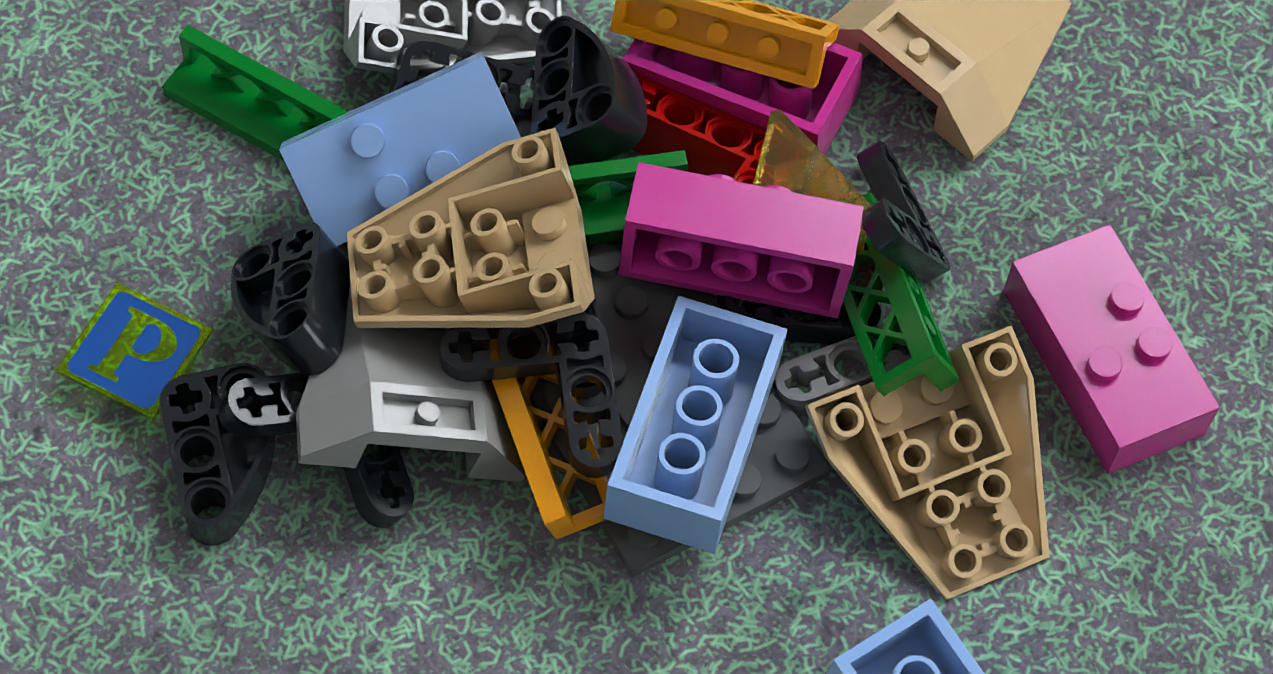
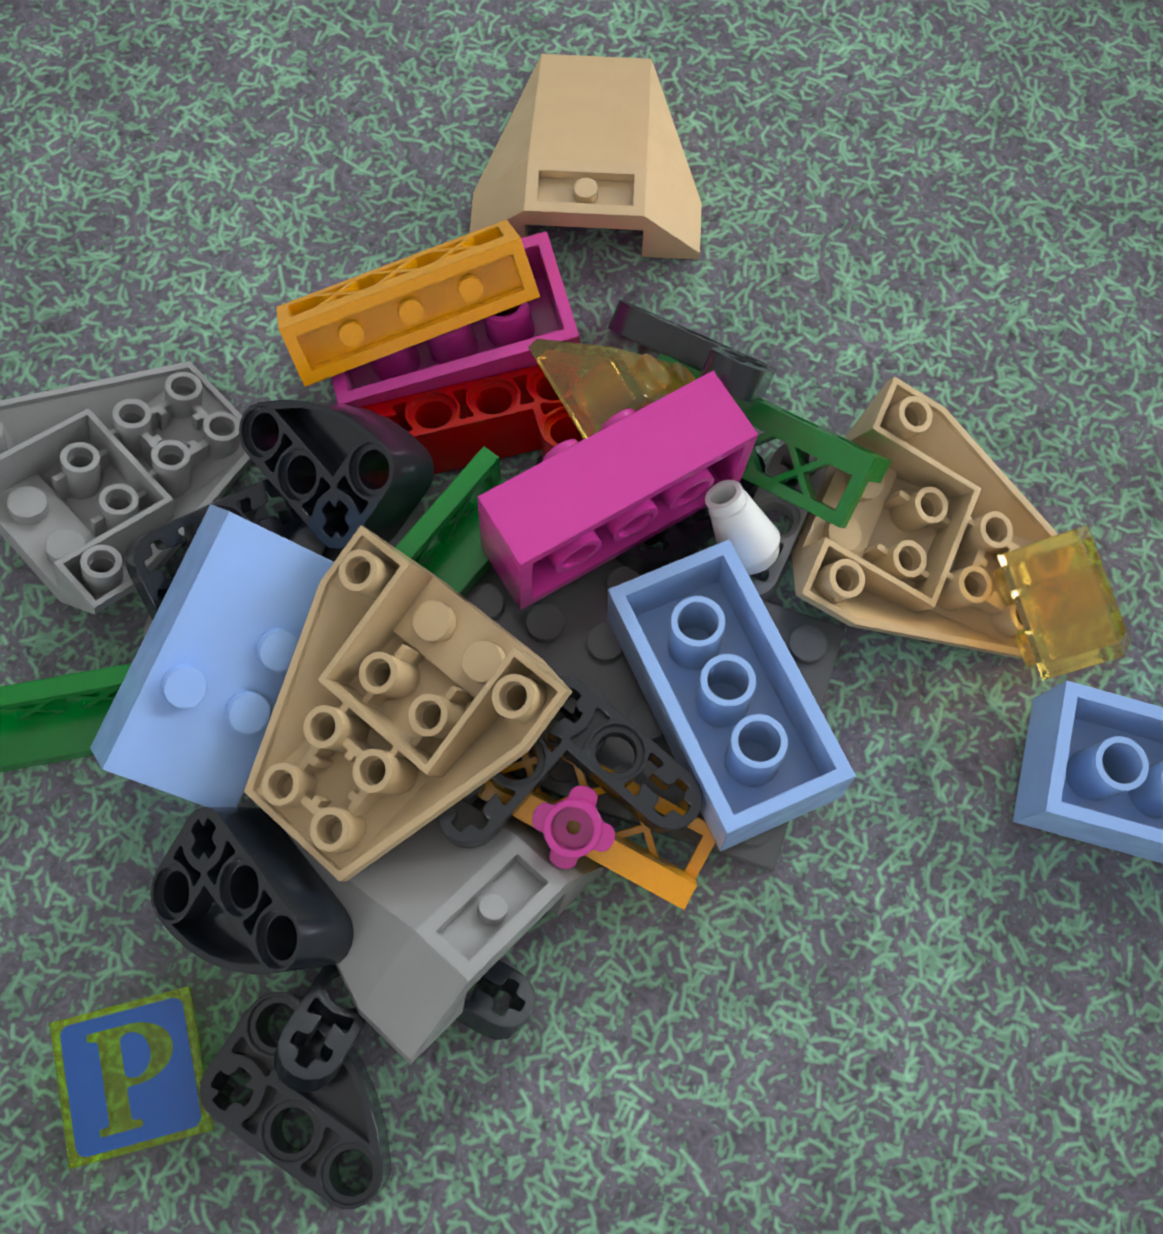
camera: 40 degrees left, 10 degrees up
(516, 397) = (593, 832): none -> dark pink plate
(809, 338) = (744, 524): none -> white cone
(997, 565) = (1062, 603): none -> clear yellow slope
(1109, 348) = (965, 332): brick -> none

